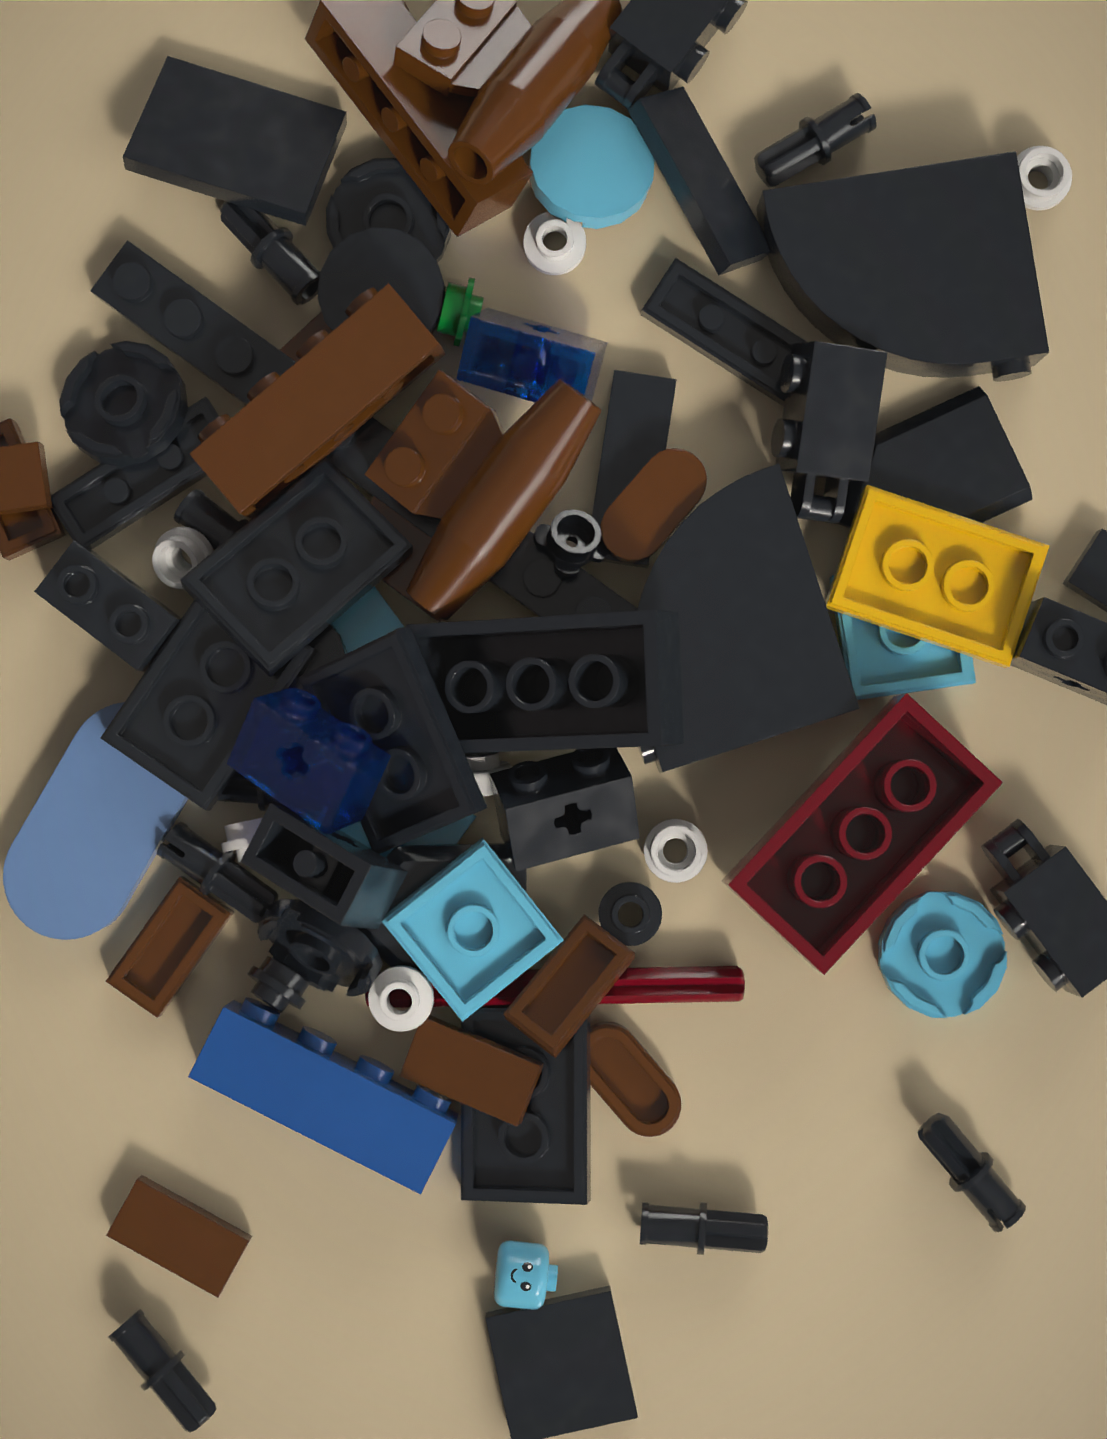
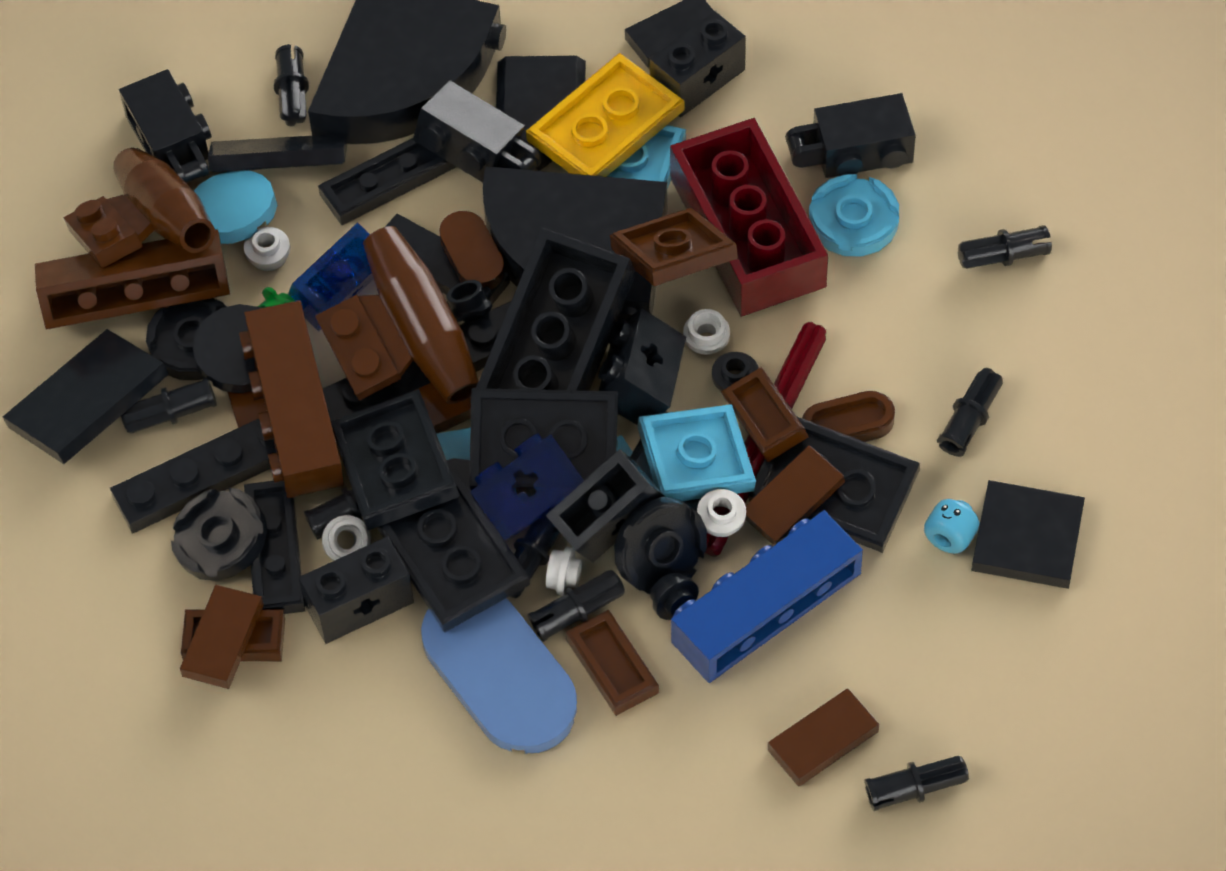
camera: 65 degrees left, 30 degrees down
(740, 775) = (673, 246): none -> reddish brown tile

